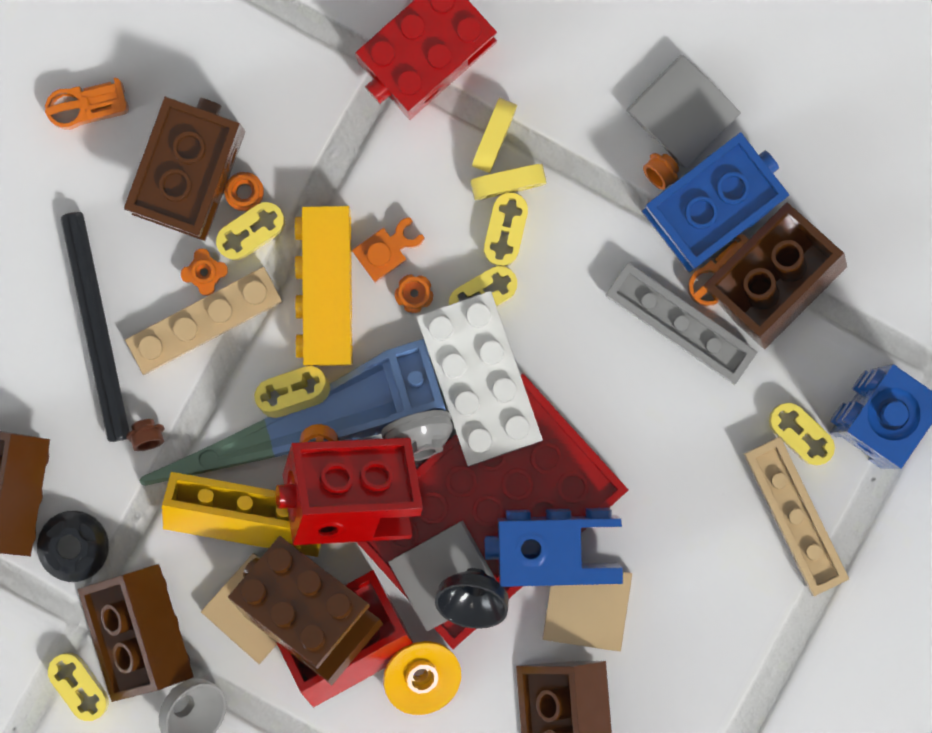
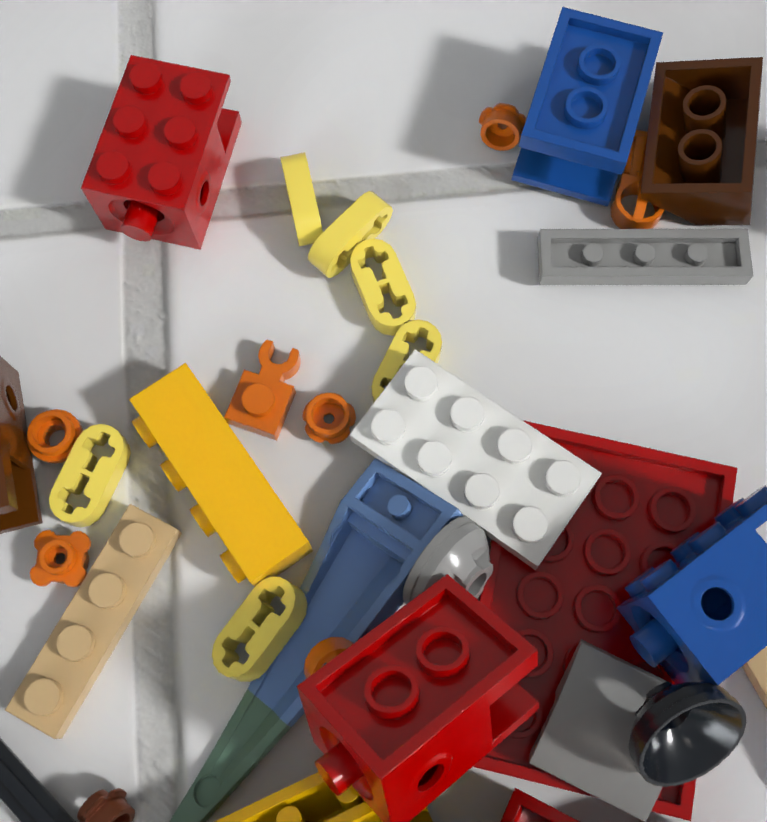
camera: 35 degrees left, 15 degrees down
(683, 111) = (479, 59): light grey slope -> none

